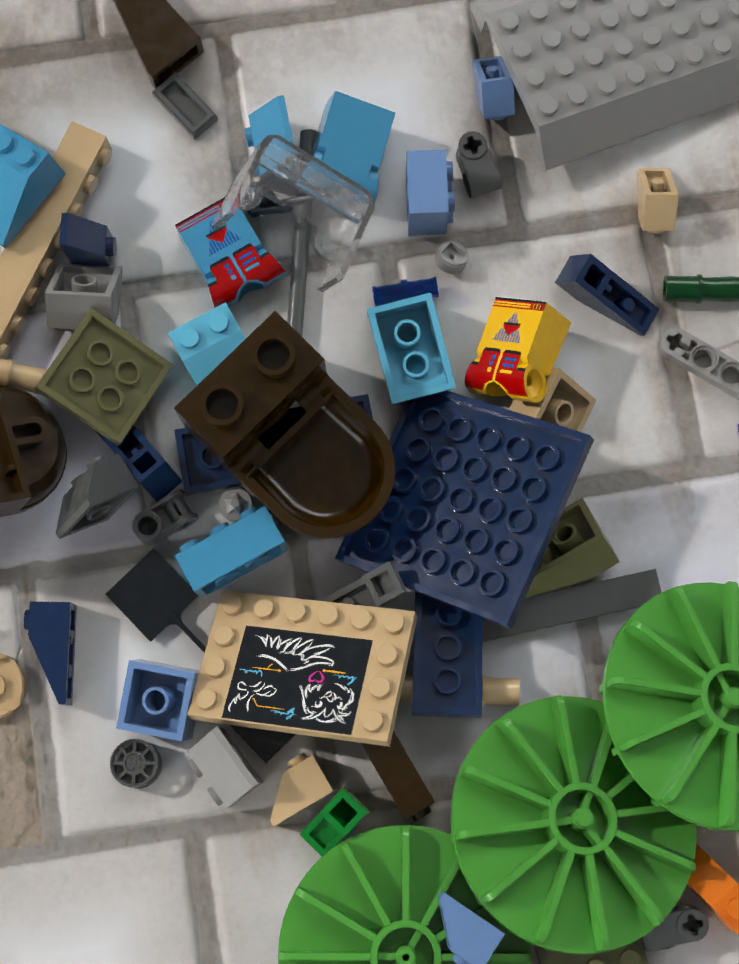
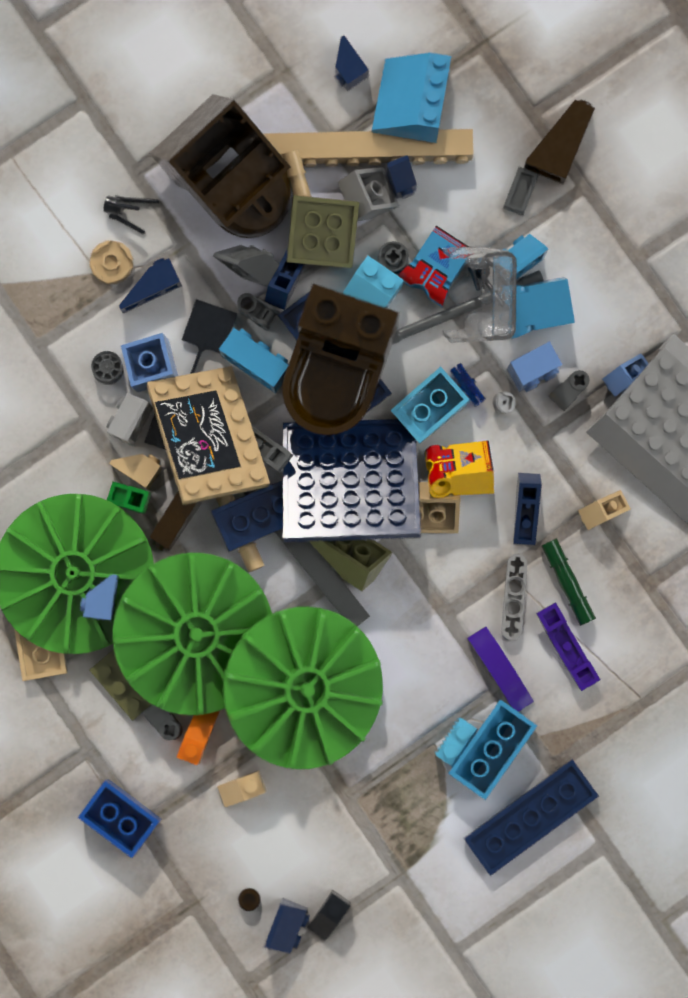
camera: 65 degrees right, 5 degrees up
(185, 302) = (393, 256): none -> dark grey wheel
(233, 503) = (285, 347): light grey tile -> none

